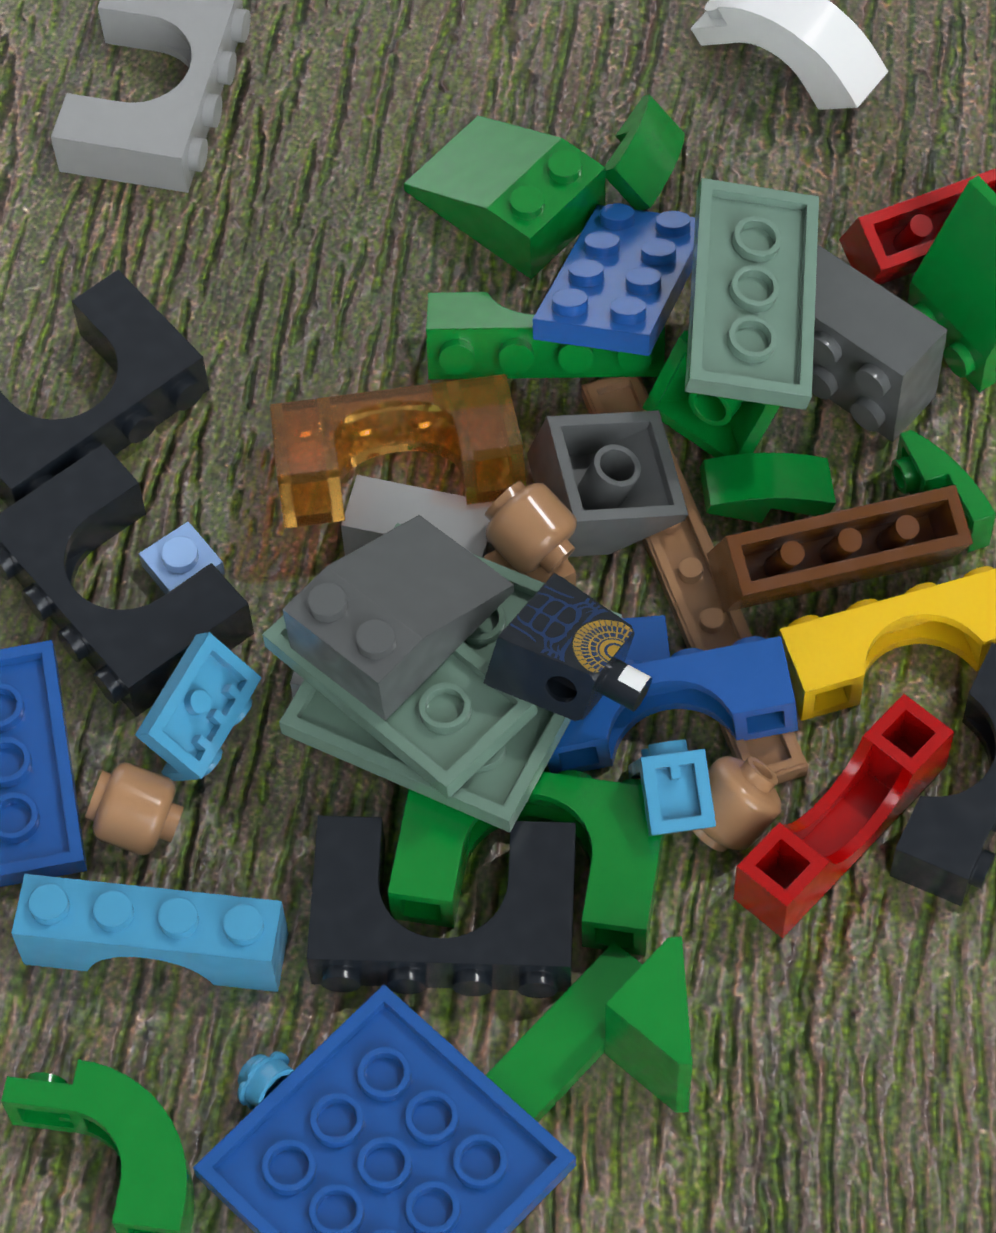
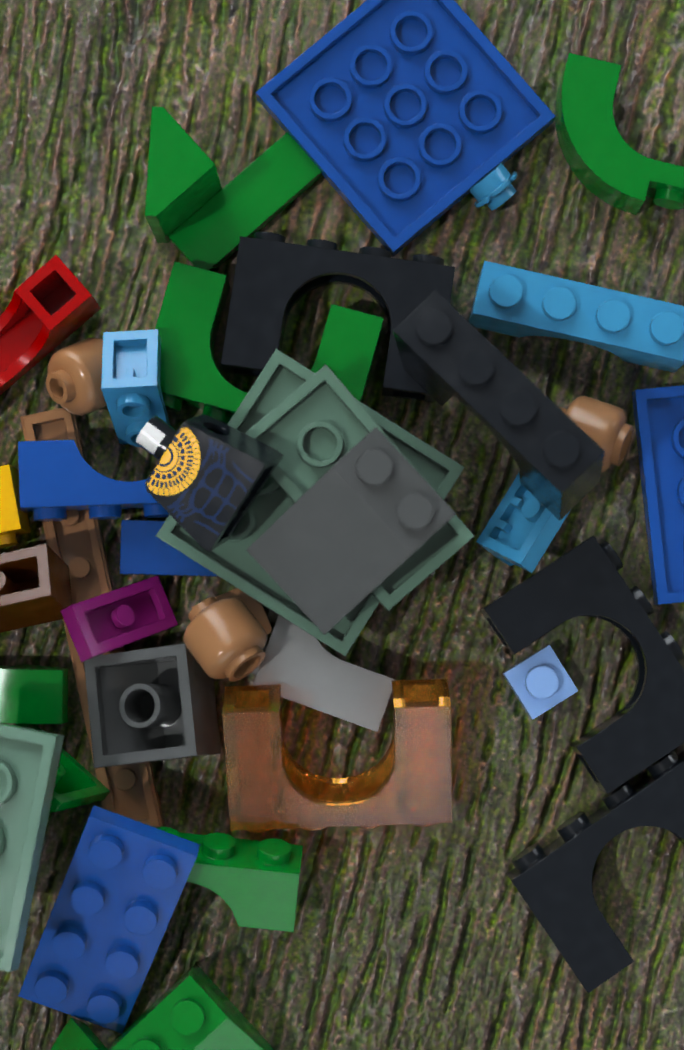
camera: 175 degrees left, 25 degrees up
(185, 693) = (456, 360): none -> black arch
(655, 557) = (119, 618): none -> magenta plate

